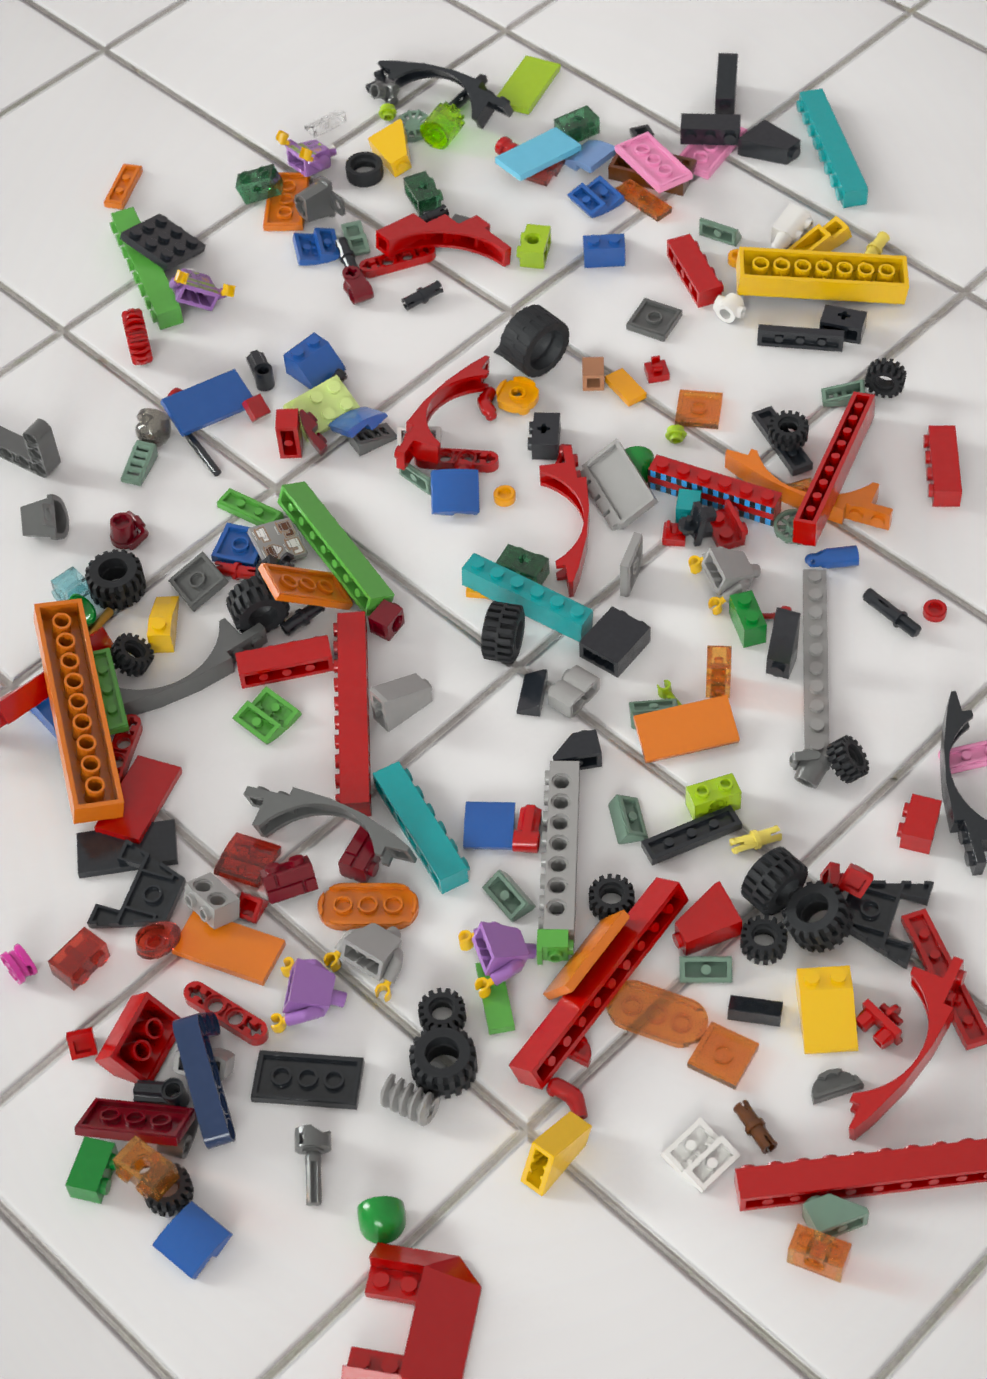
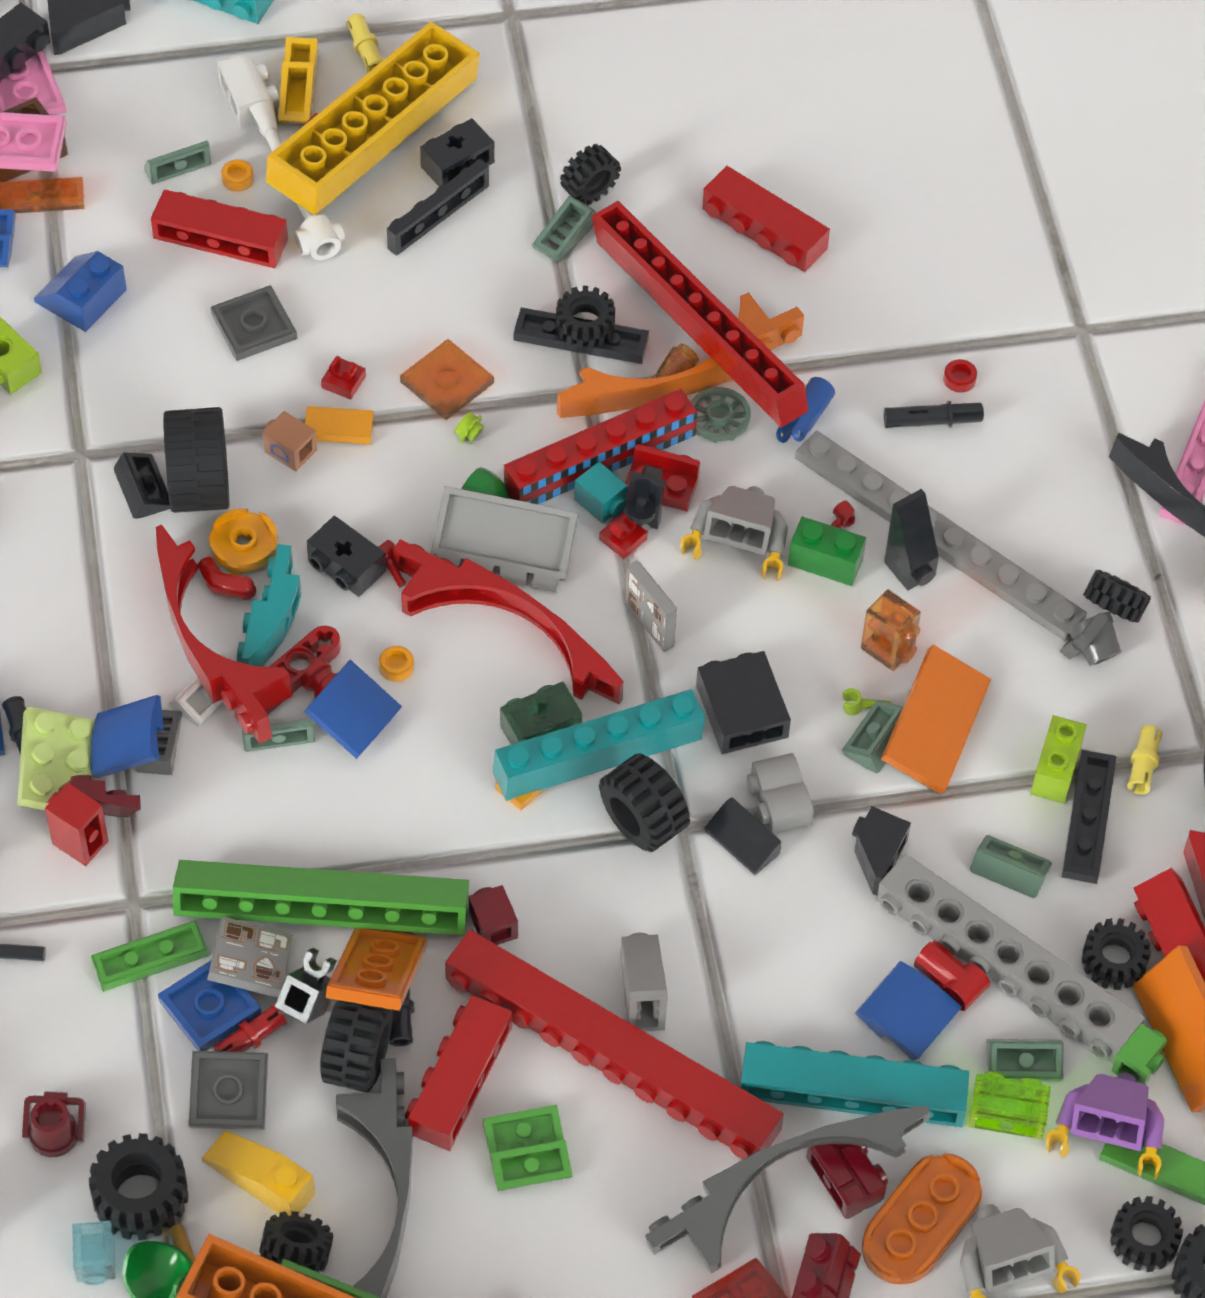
camera: 60 degrees left, 5 degrees up
(467, 901) = (1009, 1105): none -> clear neon green brick
(481, 433) = (273, 616): none -> teal slope

